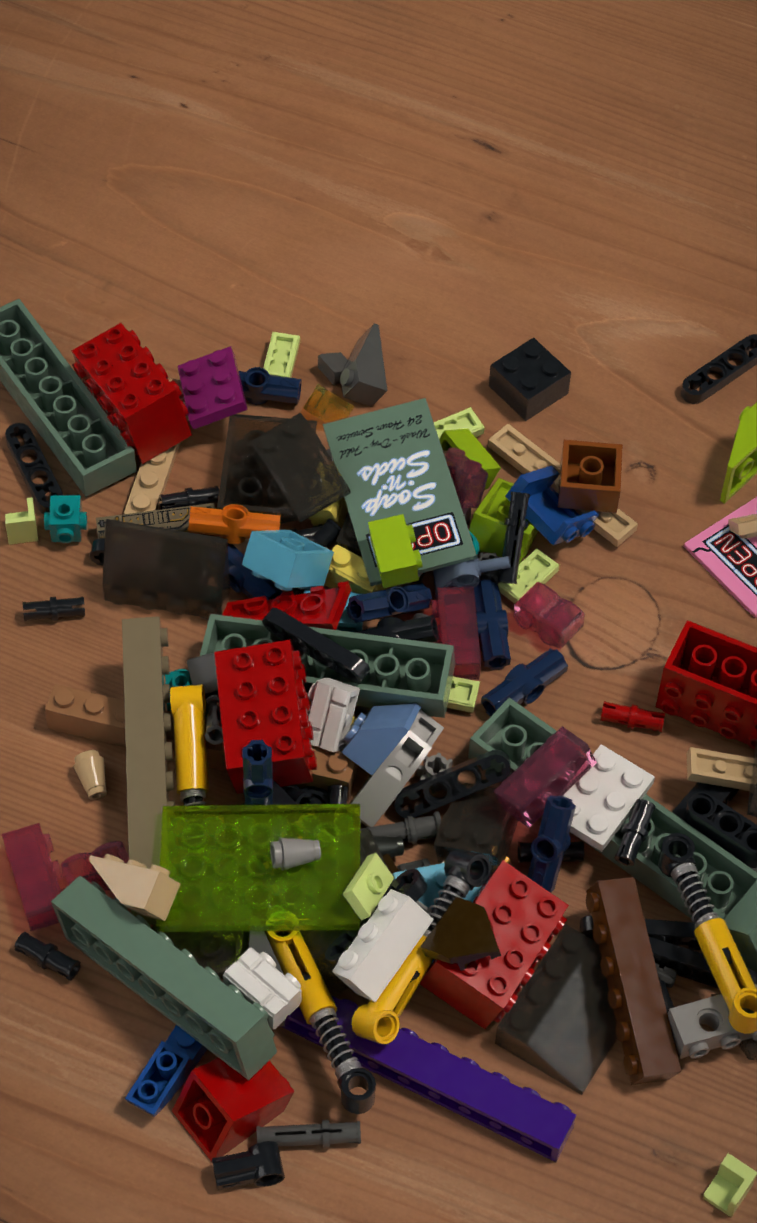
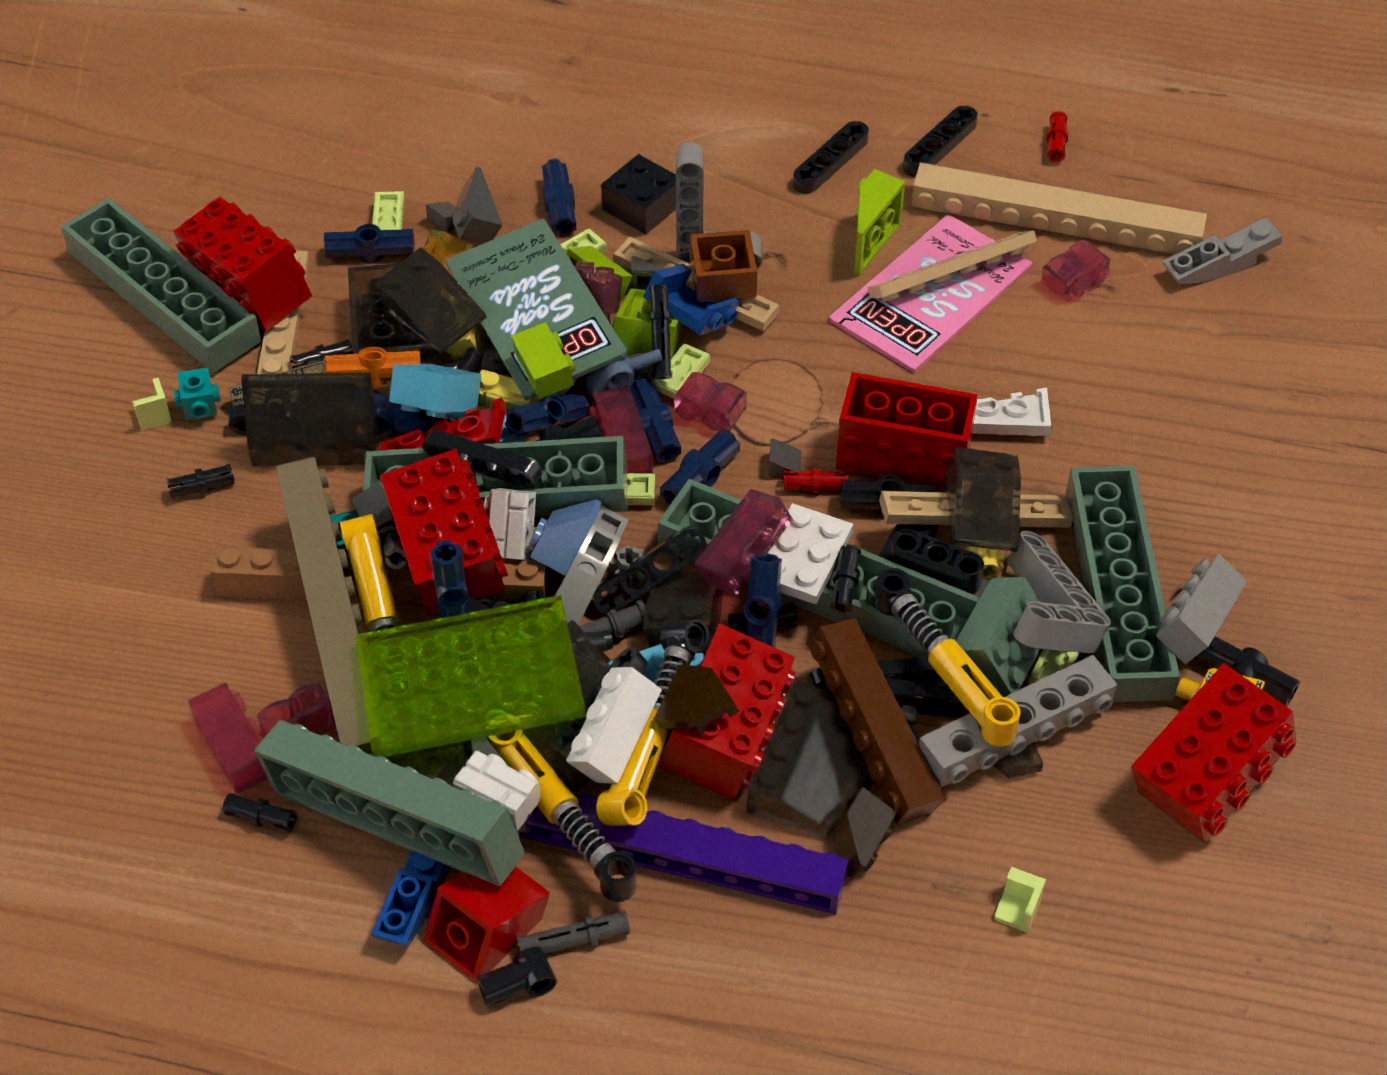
camera: 10 degrees left, 5 degrees down
(33, 469) = (151, 357): black beam -> none
(91, 772) = (271, 628): tan cone -> none
(137, 887) = (351, 715): tan slope -> none
(212, 387) = (324, 247): magenta plate -> none
(294, 852) = (502, 651): light grey cone -> none
(368, 886) = (586, 671): yellowish green plate -> none
(448, 368) = (559, 198): none -> dark blue piece
(512, 466) = (641, 273): none -> dark grey slope
(569, 413) = (691, 201): none -> light grey beam
(595, 1084) = (860, 828): none -> dark brown slope
(607, 687) = (783, 458): none -> dark grey slope
(678, 741) = (867, 493): none -> black piece

